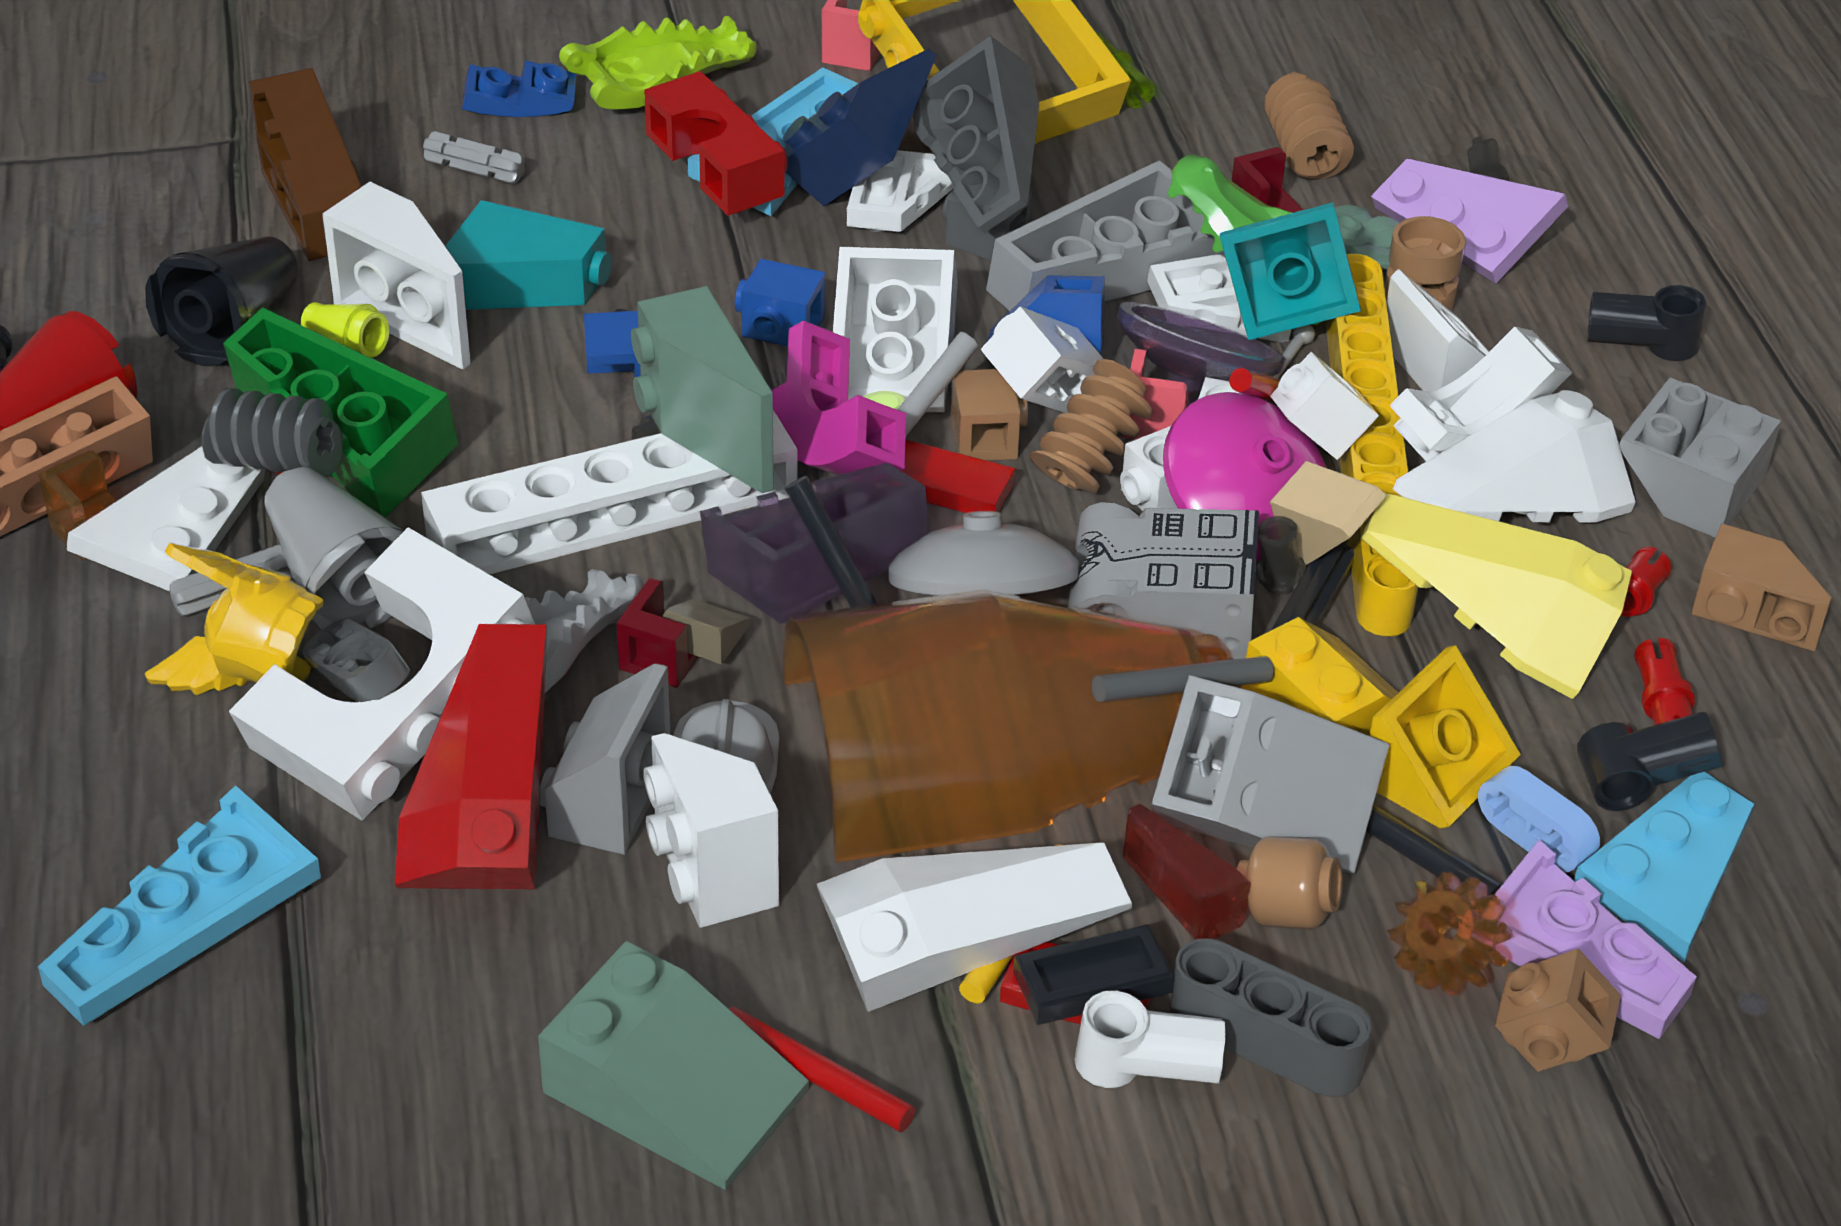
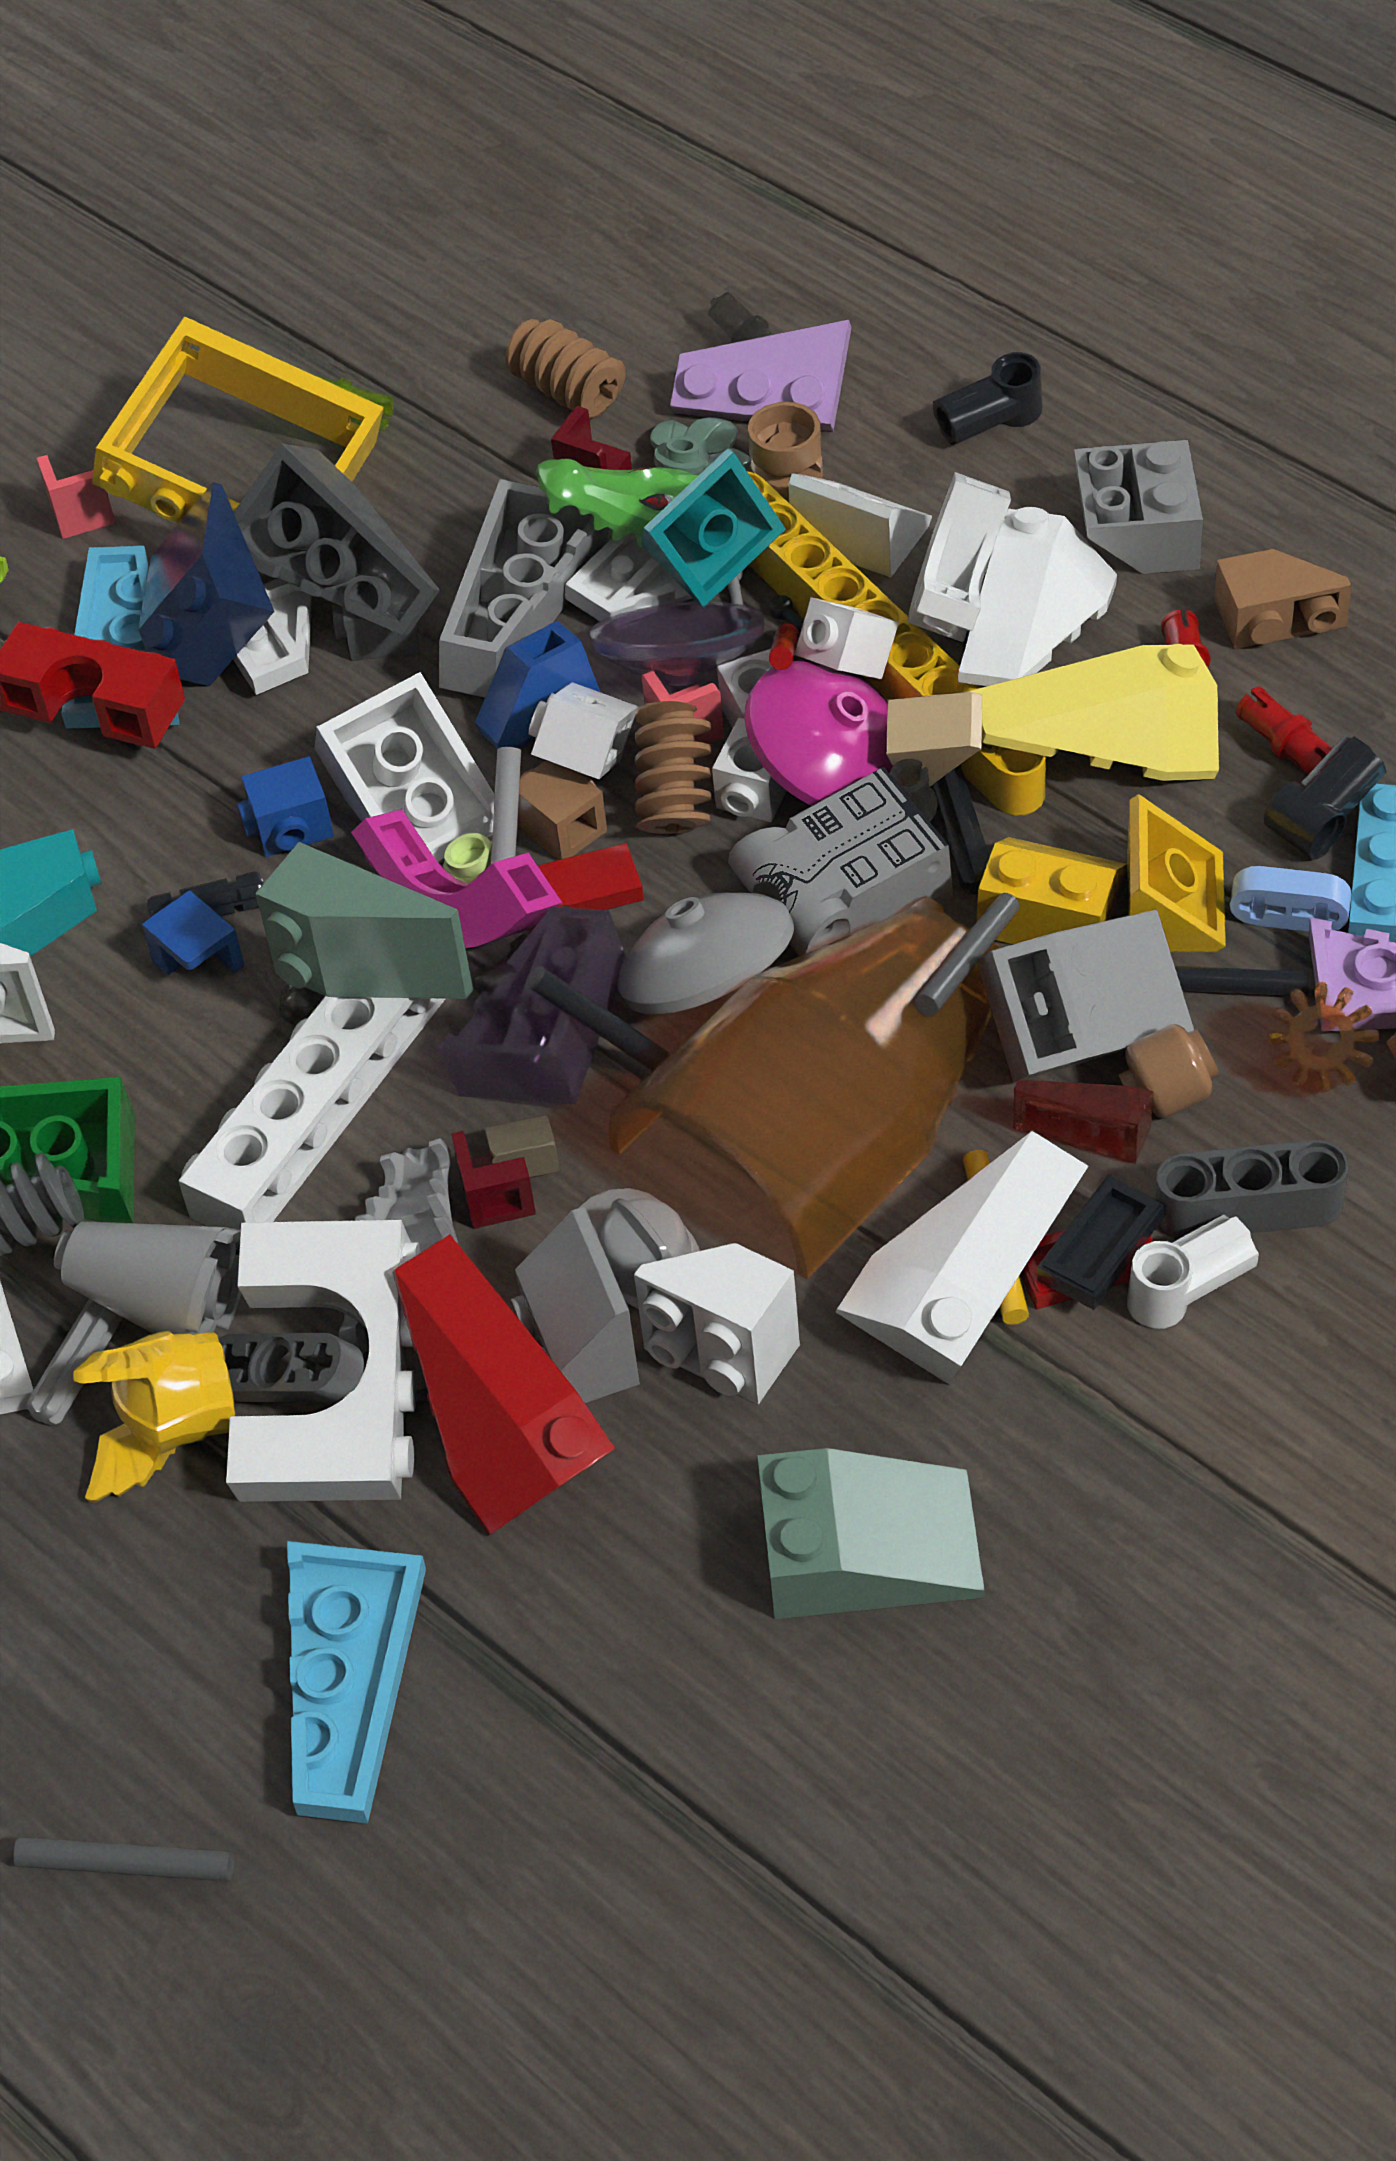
camera: 30 degrees left, 10 degrees up
(834, 1077) = (982, 1453): red bar -> none

